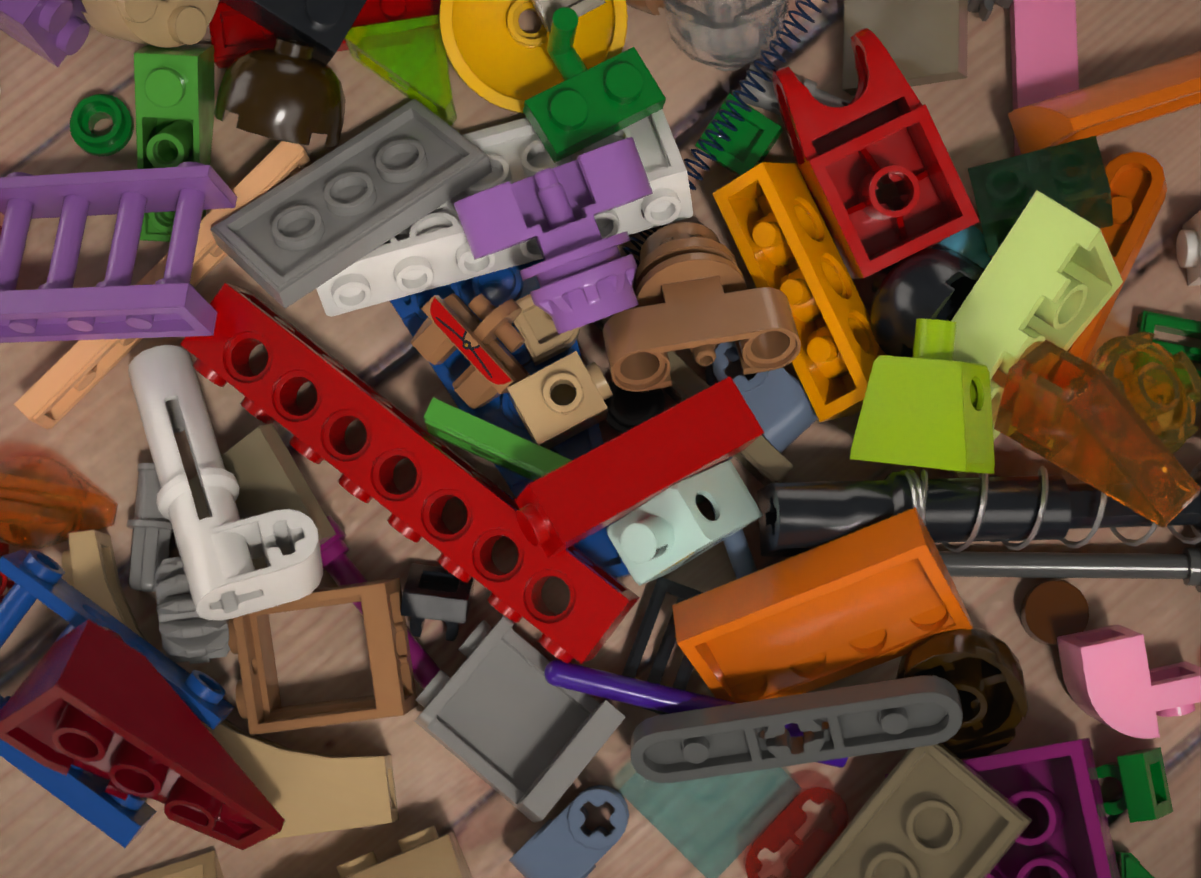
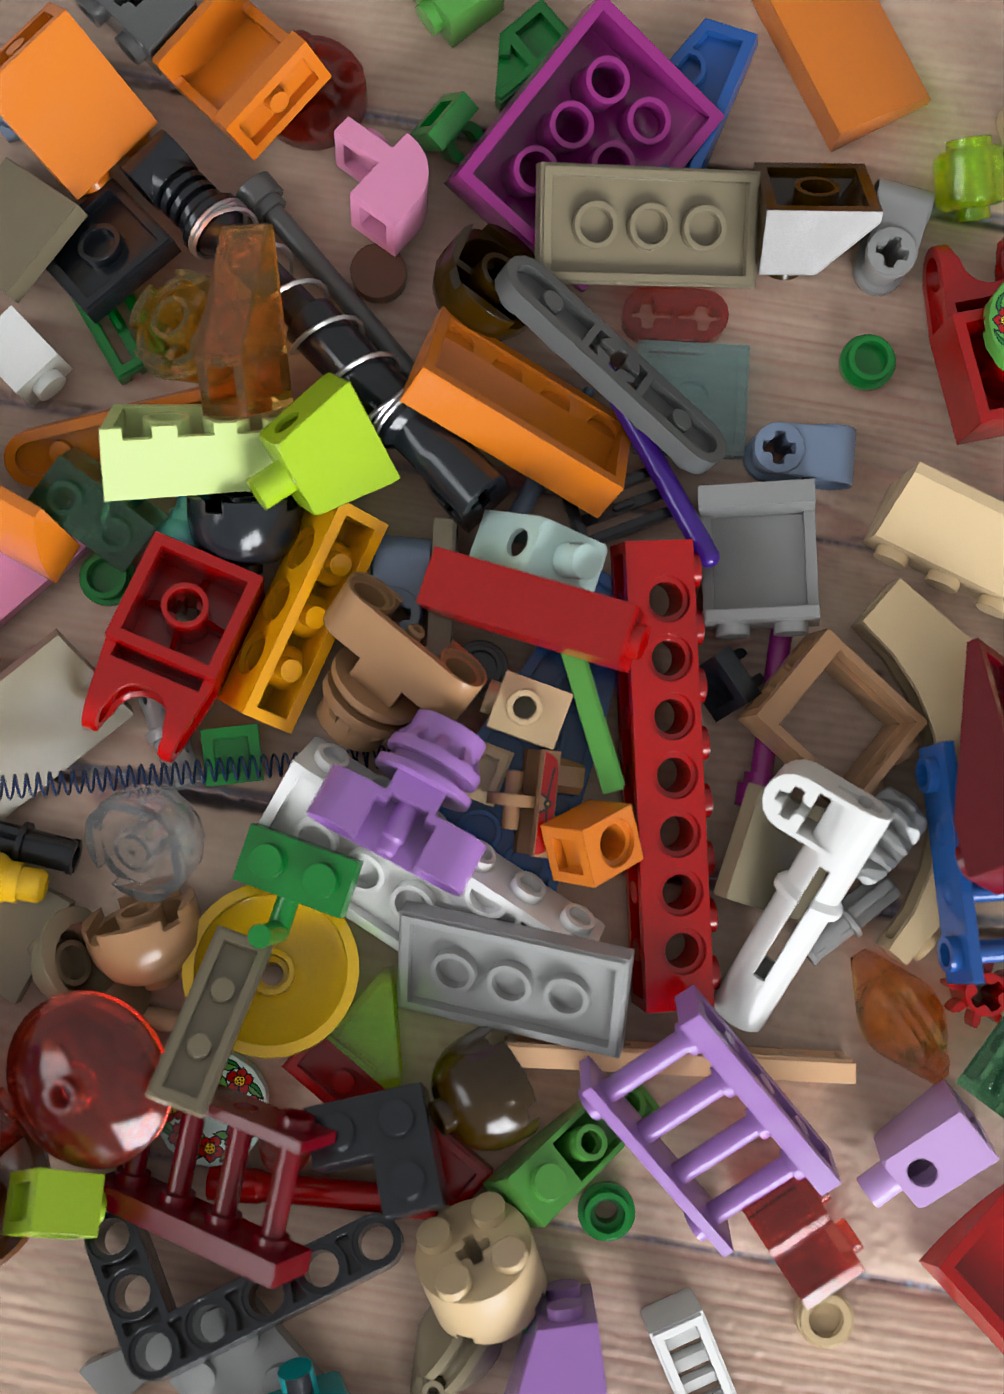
camera: 130 degrees left, 5 degrees up
(402, 353) = (592, 842): none -> orange brick
(975, 150) = (103, 582): none -> green plate

